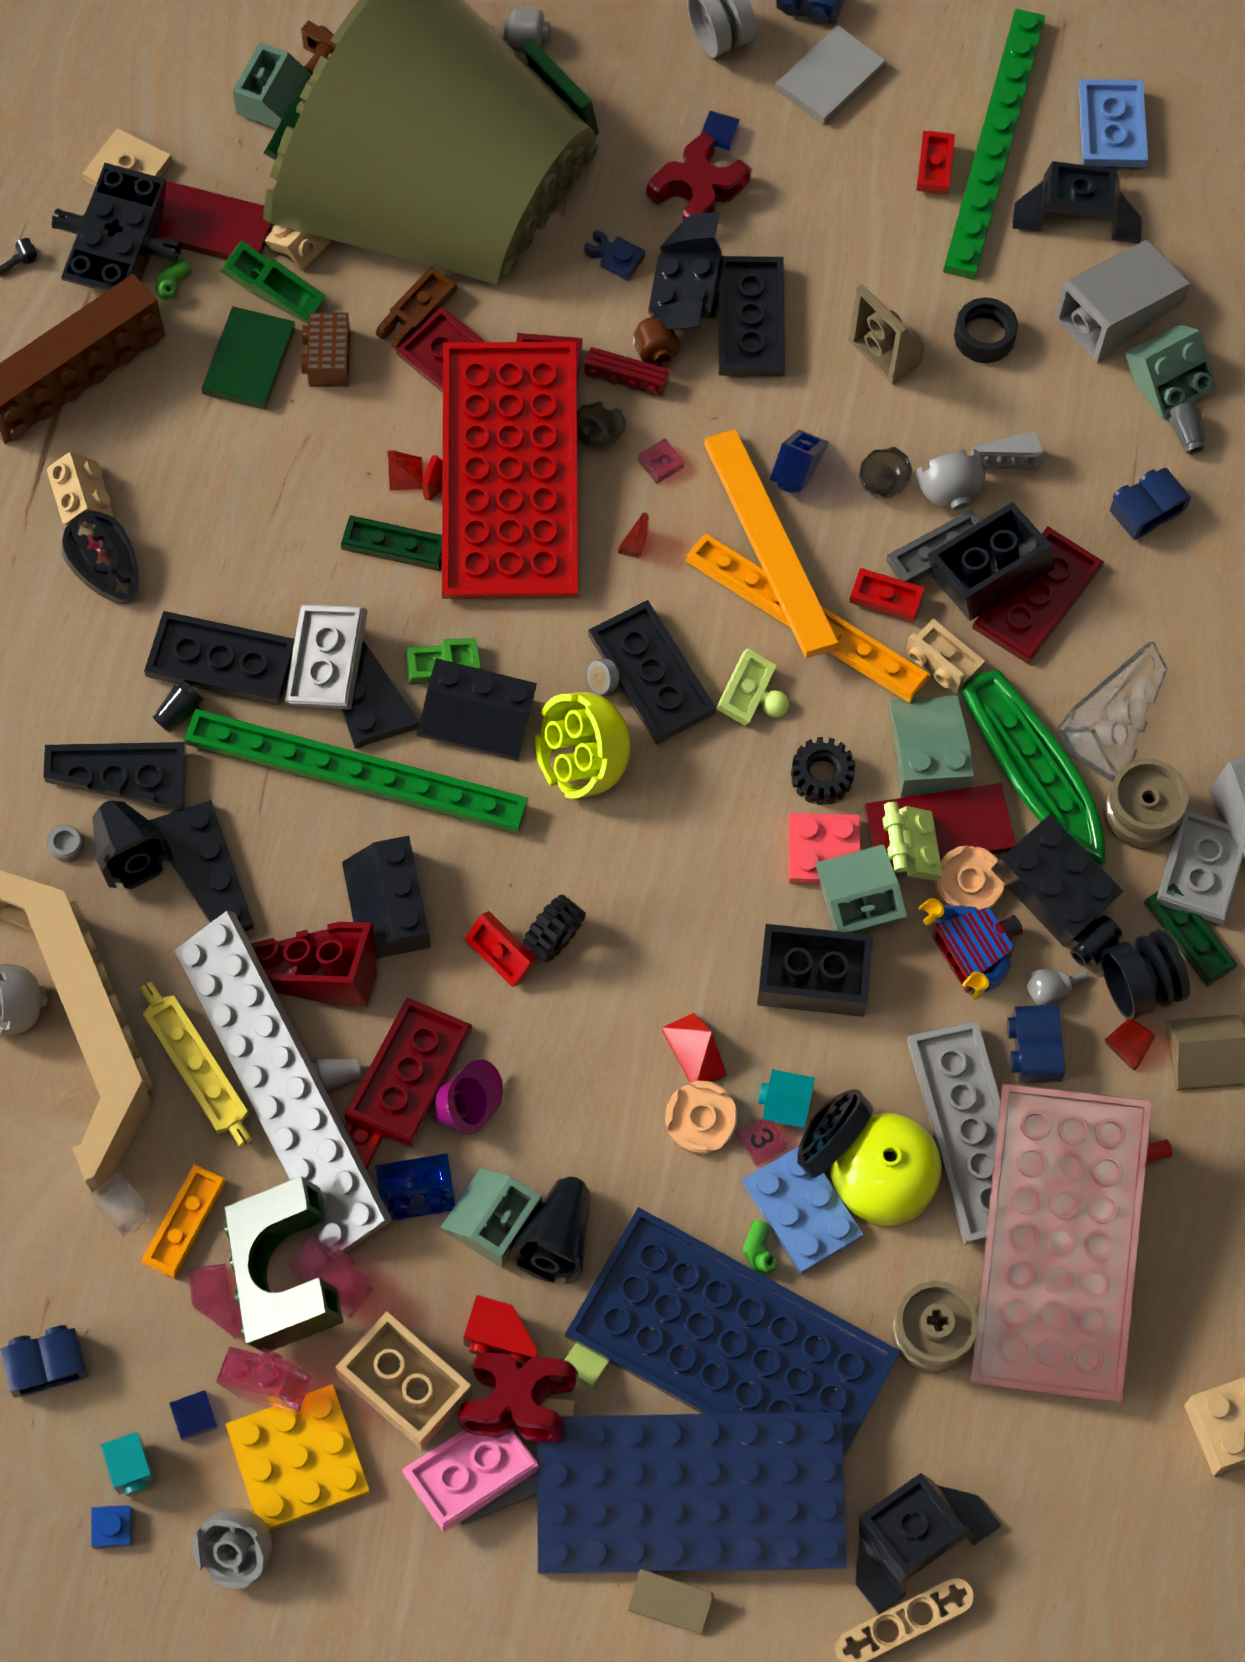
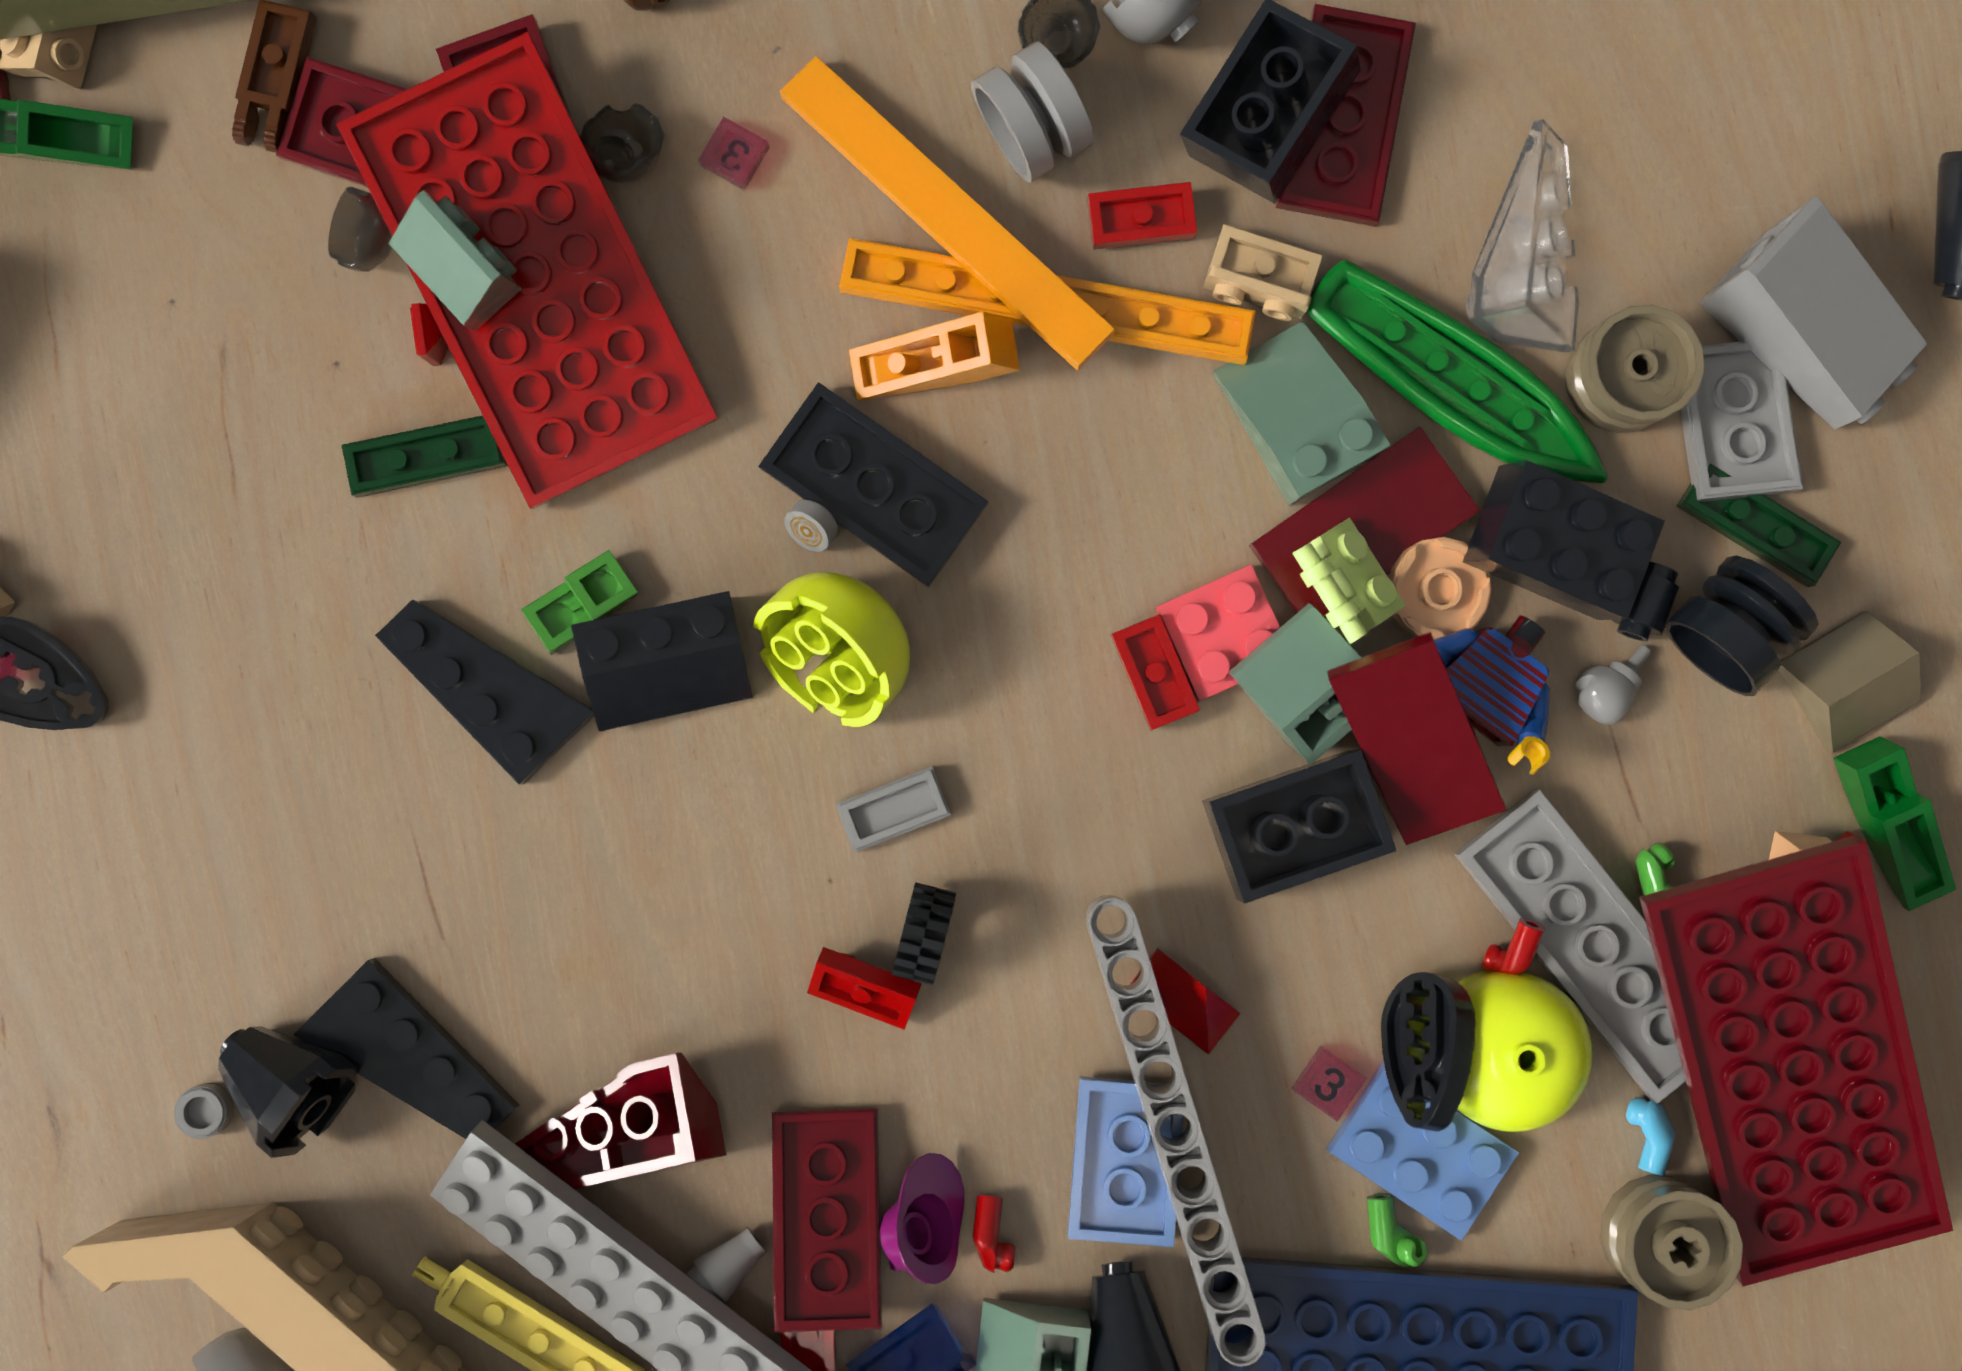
camera: 25 degrees left, 20 degrees up
(122, 770) = (237, 970): black wing -> none
(177, 705) = (250, 844): black cone -> none
(220, 657) = (272, 746): black plate -> none
(248, 357) = (74, 264): dark green tile -> none
(325, 656) = (416, 681): tile -> none
(327, 349) = (178, 202): reddish brown brick -> none
(356, 771) = (540, 824): green plate -> none
(387, 894) = (678, 987): black slope -> none
(404, 471) = (383, 339): clear red slope -> none
(423, 407) = (358, 232): none -> clear smoke hair
(473, 436) = (459, 269): none -> sand green slope
(500, 1132) = (986, 1235): none -> red arm
(570, 859) = (893, 809): none -> light grey tile
(611, 1125) = (1115, 1168): none -> medium blue plate
(626, 371) = (619, 36): dark red piece -> none
(635, 539) = (756, 295): clear red slope -> none
(647, 1121) = (1189, 1149): none -> light grey beam
(701, 1117) = (1238, 1091): light nougat tile -> none
(725, 617) = (936, 357): none -> light orange slope
(748, 688) = (1017, 449): yellowish green plate -> none
(770, 850) = (1155, 672): none -> red plate
(786, 1098) = (1340, 1019): teal brick -> none
(797, 461) = (926, 65): clear blue slope -> none
(822, 789) = (1176, 491): black tyre -> none
(846, 507) = (1033, 111): none -> light grey wheel
(910, 947) = (1417, 738): none -> dark red tile
(912, 559) = (1156, 140): dark grey plate -> none
(919, 1106) = (1520, 950): none -> red arm
(960, 1261) = (1658, 1134): none -> medium azure arm
(1037, 1044) = (1631, 784): dark blue brick -> none
(1130, 1042) = (1745, 718): clear red slope -> none
(1198, 1145) = (1896, 821): none -> green slope

